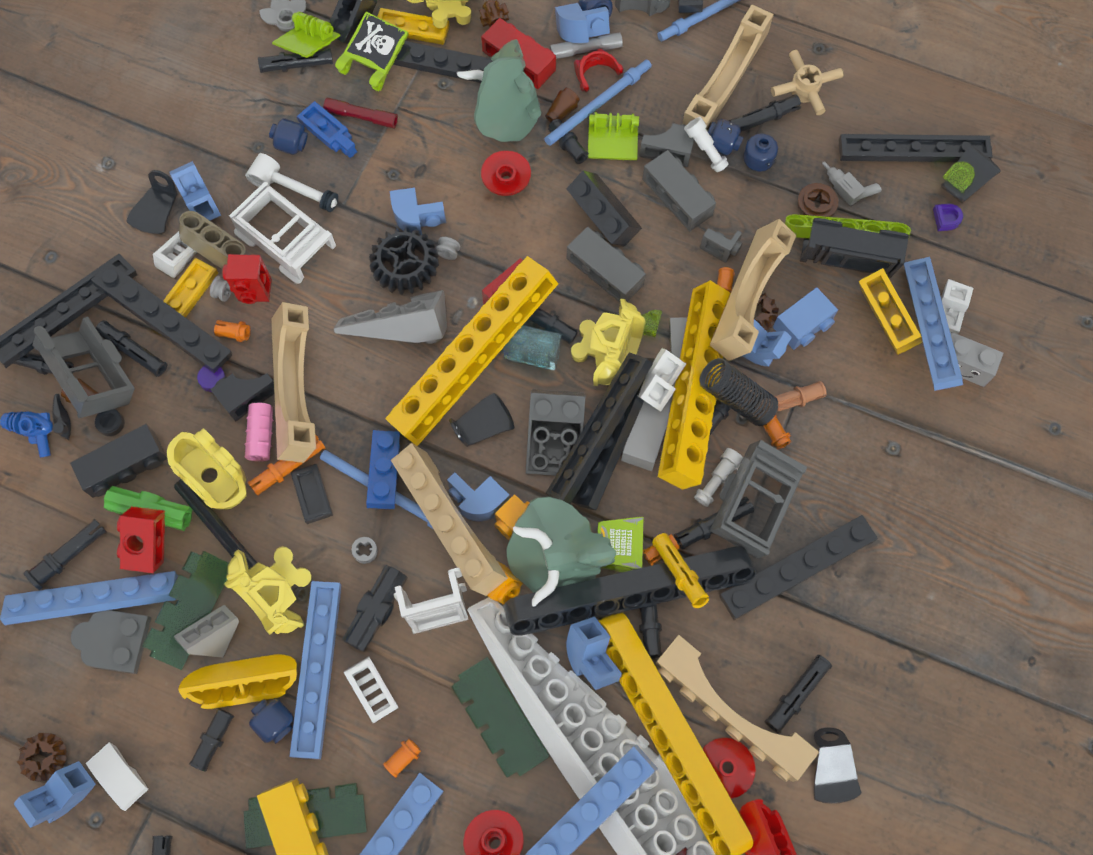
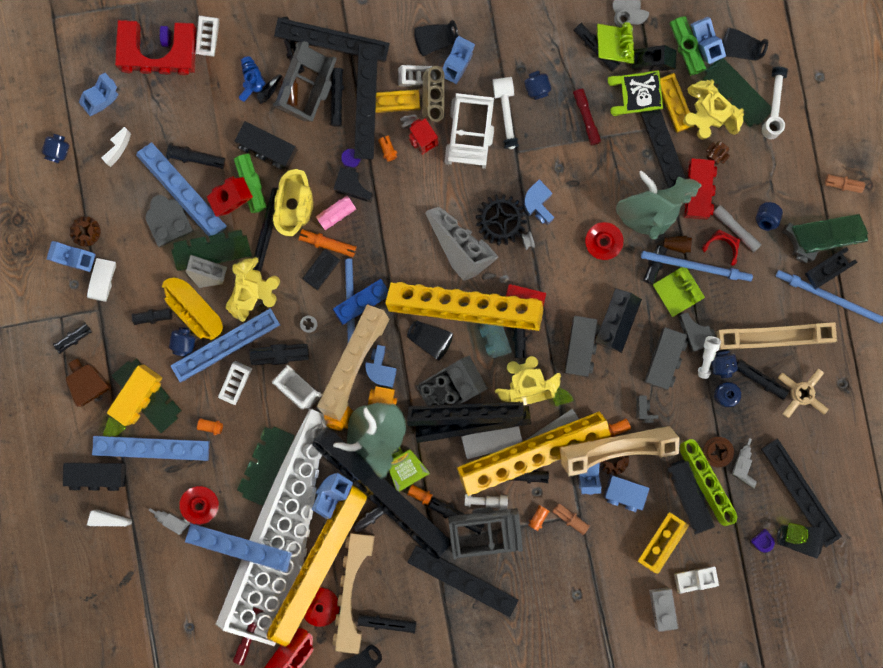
camera: 60 degrees right, 15 degrees up
(109, 422) = (285, 120): black tile -> none
(293, 427) = (348, 234): tan arch -> none
(327, 129) = (560, 104): blue hinge -> none
(579, 25) = (744, 215): medium blue brick -> none
(659, 380) = (516, 431): white slope -> none
(685, 578) = (398, 533): yellow pin -> none
(724, 382) = (541, 479): black piece -> none
(933, 324) = (670, 573): medium blue plate -> none

